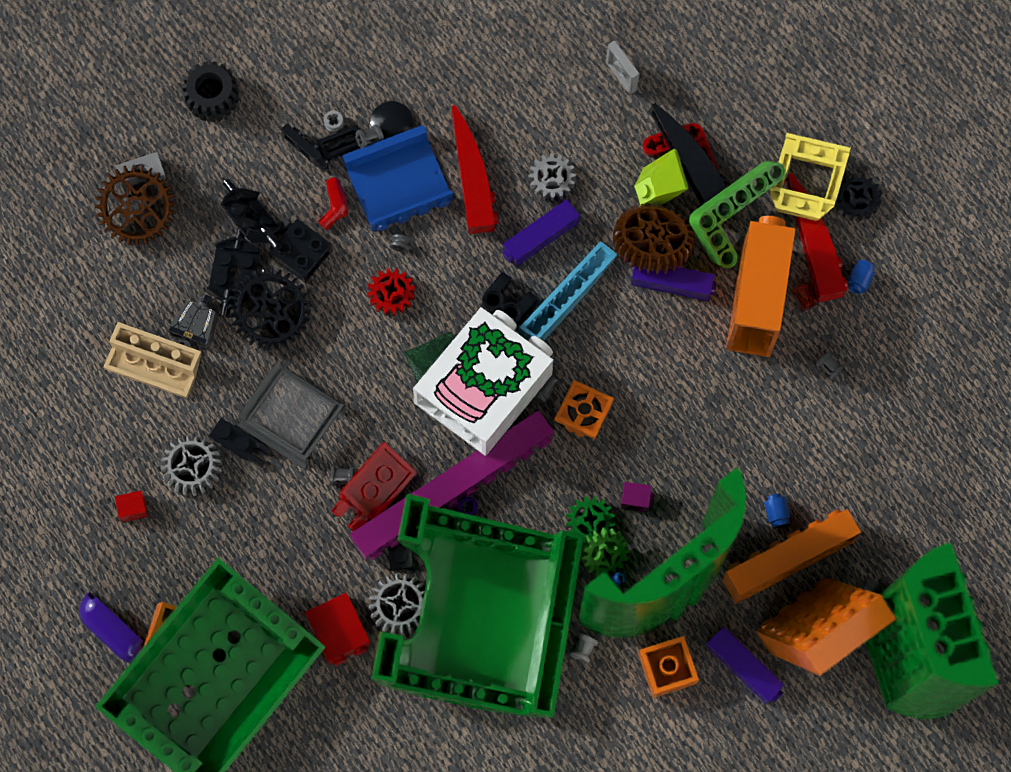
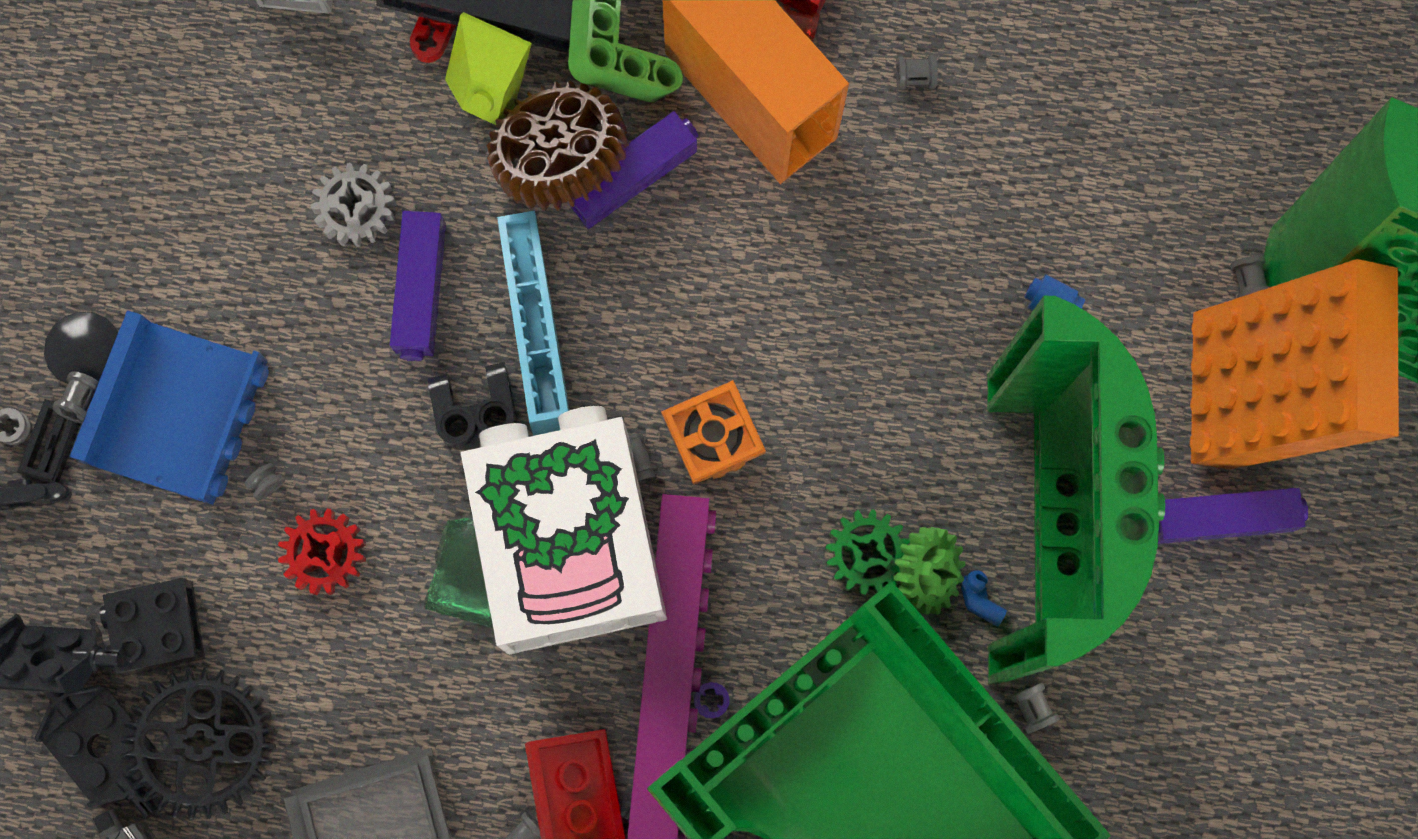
camera: 50 degrees left, 5 degrees up
(338, 203) = (132, 517): red arm -> none
(474, 180) = (262, 307): red slope -> none
(637, 497) = (886, 464): magenta brick -> none
(668, 667) = (1162, 623): orange brick -> none
(790, 556) = (1145, 288): orange brick -> none

